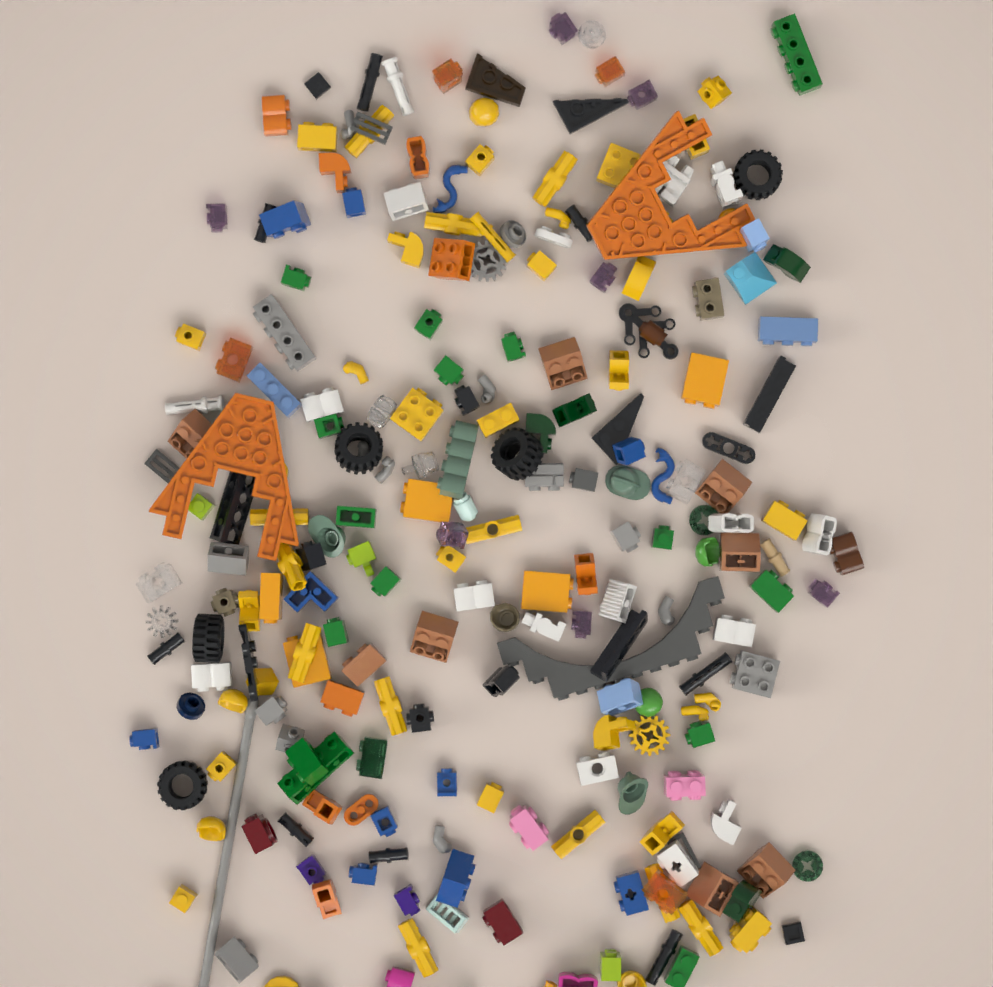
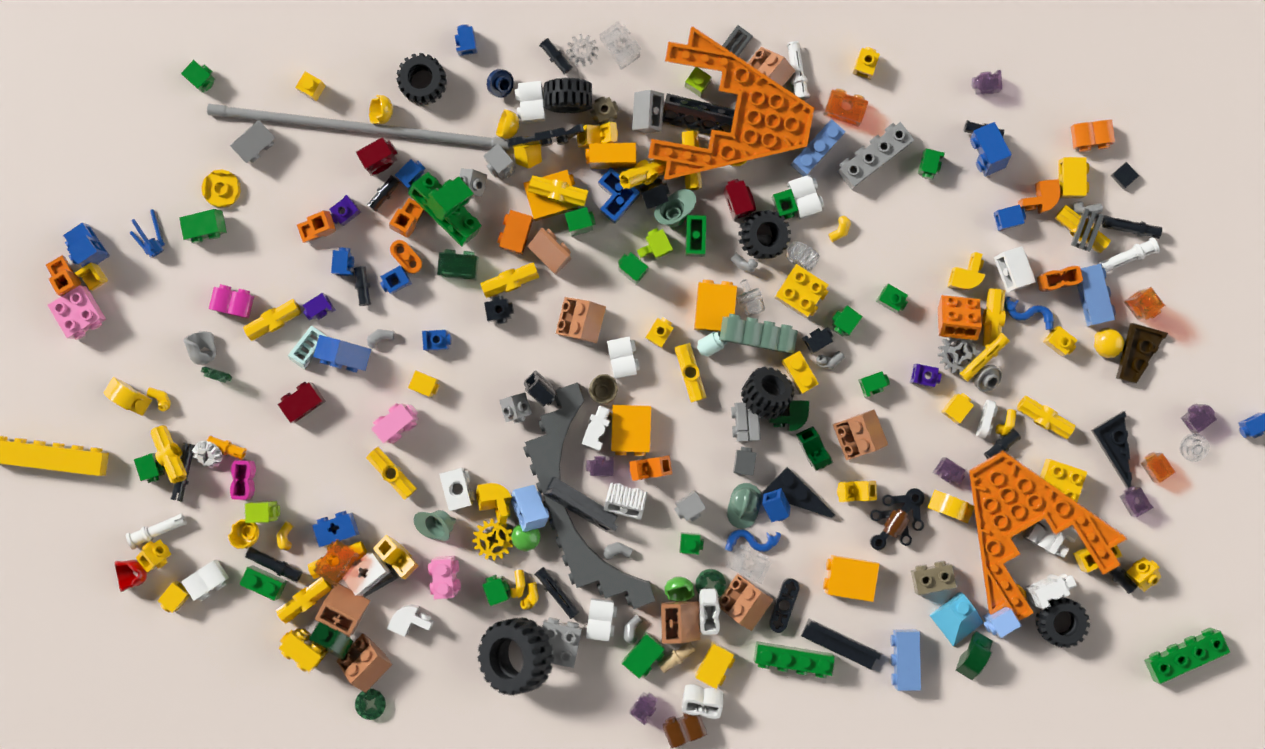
camera: 90 degrees right, 0 degrees up
(221, 766) = (442, 116): yellow brick -> none
(277, 800) = (410, 173): none -> blue brick
(321, 471) = (739, 199): none -> dark red brick
(436, 122) = (1095, 296): none -> medium blue brick
(452, 534) = (683, 332): brick -> none
(507, 302) = (918, 375): none -> dark purple brick
(519, 706) = (515, 408): none -> light grey brick
(636, 947) = (282, 538): none -> yellow arm
(716, 114) = (1119, 575): none -> black pin
(745, 603) = (629, 629): none -> light grey arm
(770, 737) = (496, 661): none -> black tyre
(781, 441) = (793, 658): none -> green brick
(793, 933) = (303, 692): black tile -> none

